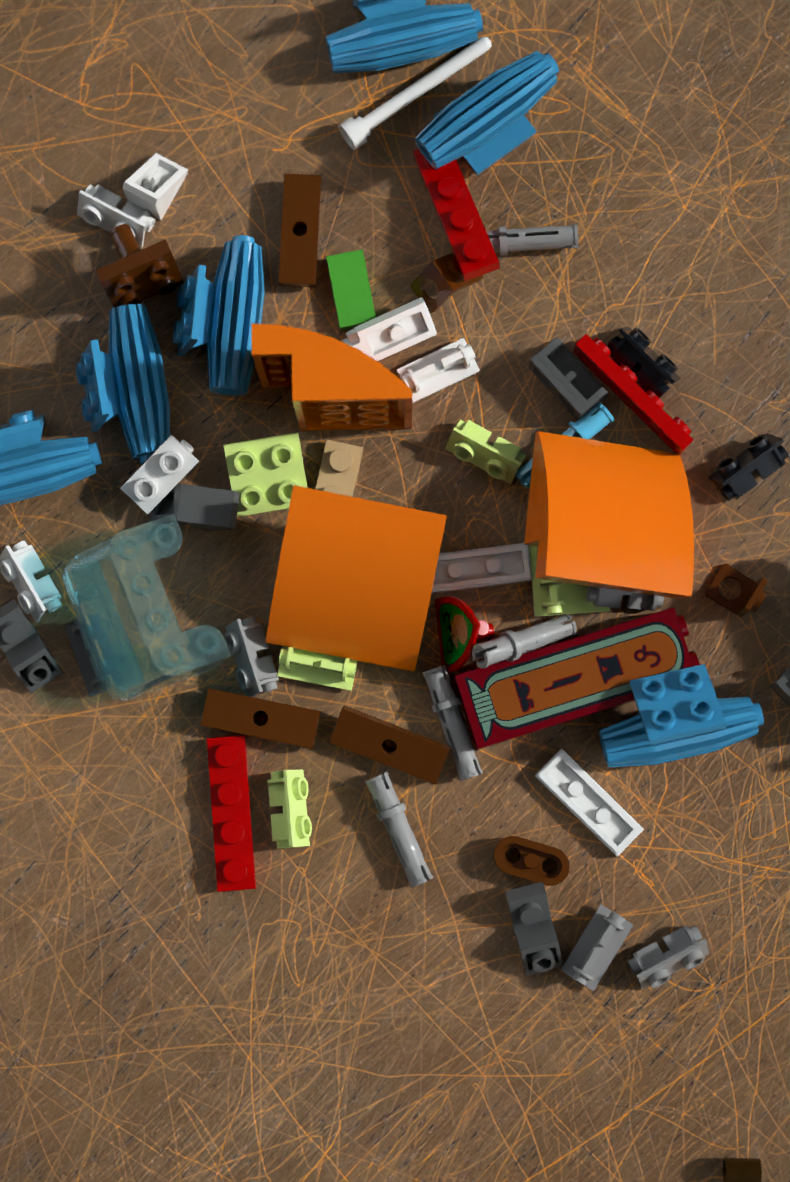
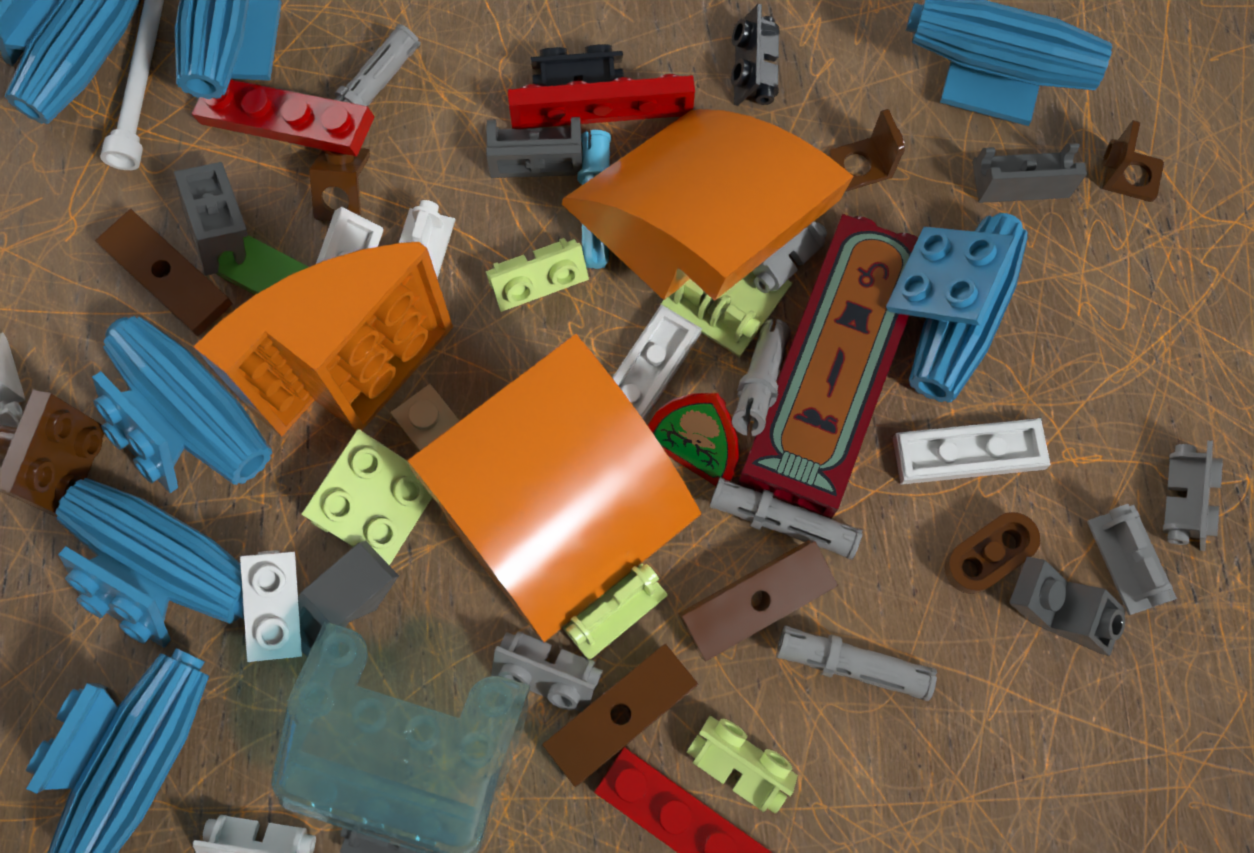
camera: 55 degrees left, 10 degrees down
(356, 228) = (211, 214): none -> dark grey hinge

